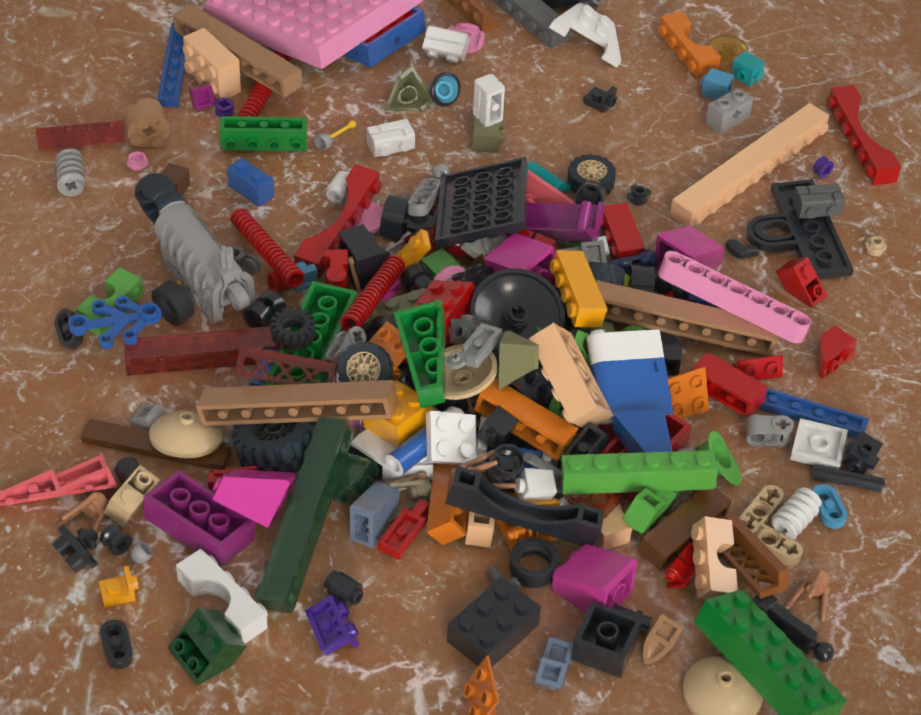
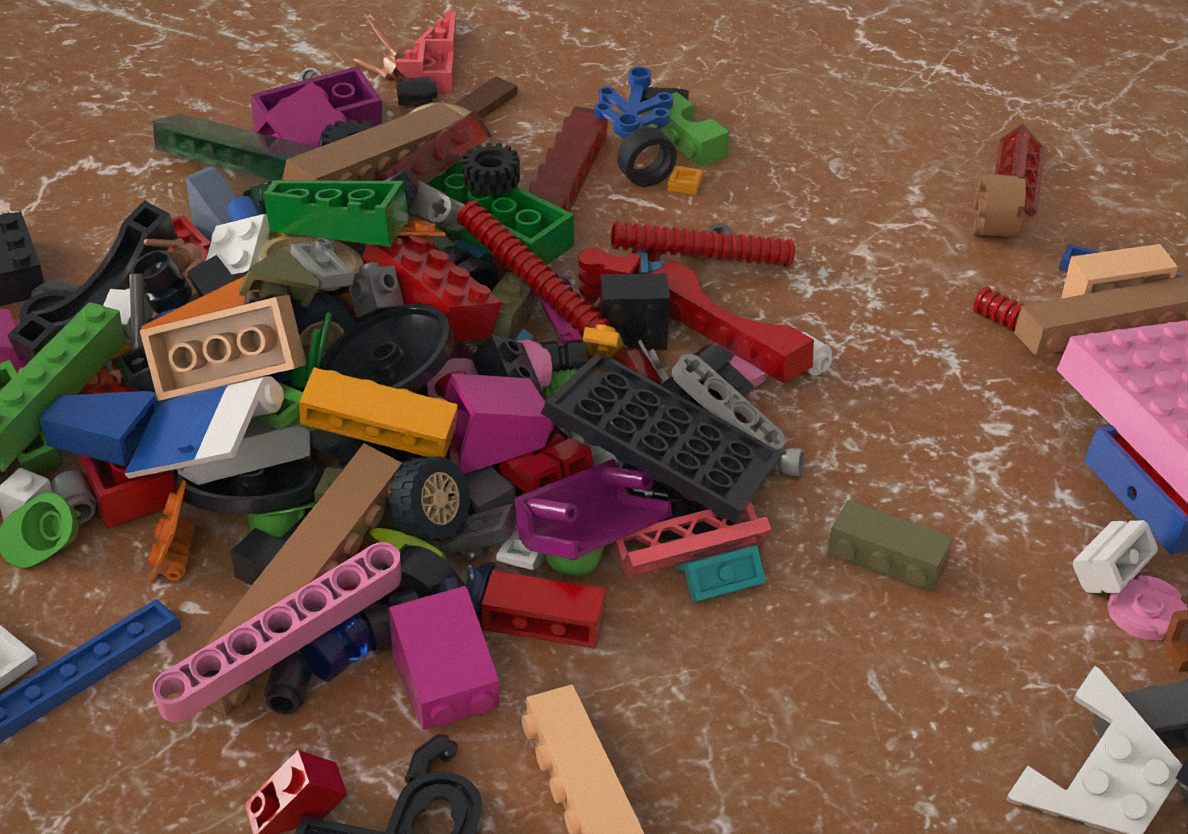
camera: 115 degrees right, 5 degrees down
(70, 172) = (936, 142): light grey piece -> none
(81, 556) = (348, 45): black hips -> none
(115, 539) = (338, 63): black wheel -> none
(116, 646) = (216, 46): black plate -> none
(119, 589) = (281, 62): light orange bracket -> none
(131, 495) = (377, 70): tan slope -> none
(137, 161) = (943, 202): bright pink plate -> none
(147, 415) = (498, 125): light grey slope -> none
(179, 176) = (884, 216): reddish brown brick -> none
(193, 251) = (718, 177): light grey piece -> none
(202, 96) = (1055, 277): magenta tile -> none
(202, 575) = (230, 109): white arch -> none
(206, 645) = (161, 85): dark green slope -> none
(224, 107) = (1035, 294): dark purple bush -> none
(250, 182) = (850, 272): blue brick -> none
(262, 310) = (594, 223): black wheel -> none
(263, 133) = (942, 303): green brick -> none
(324, 141) = (920, 368): light grey hinge -> none
(332, 625) = (111, 167): dark purple bracket -> none
(344, 588) = (148, 180): black brick -> none
(390, 138) = (893, 429): white brick -> none
(409, 93) = (1001, 483): olive slope -> none
(445, 89) = (994, 517): hat -> none
(488, 100) = (893, 503): white brick -> none
(591, 167) = (703, 629): black wheel -> none
(591, 191) = (639, 588): black wheel -> none
(601, 99) = (908, 726): black bracket -> none
(638, 195) = (632, 677): black plate -> none
(732, 386) = (150, 587): red brick -> none
(761, 367) = (176, 646): red hinge -> none
(766, 430) = (48, 612): light grey piece -> none
(833, 350) = (129, 765): red slope -> none

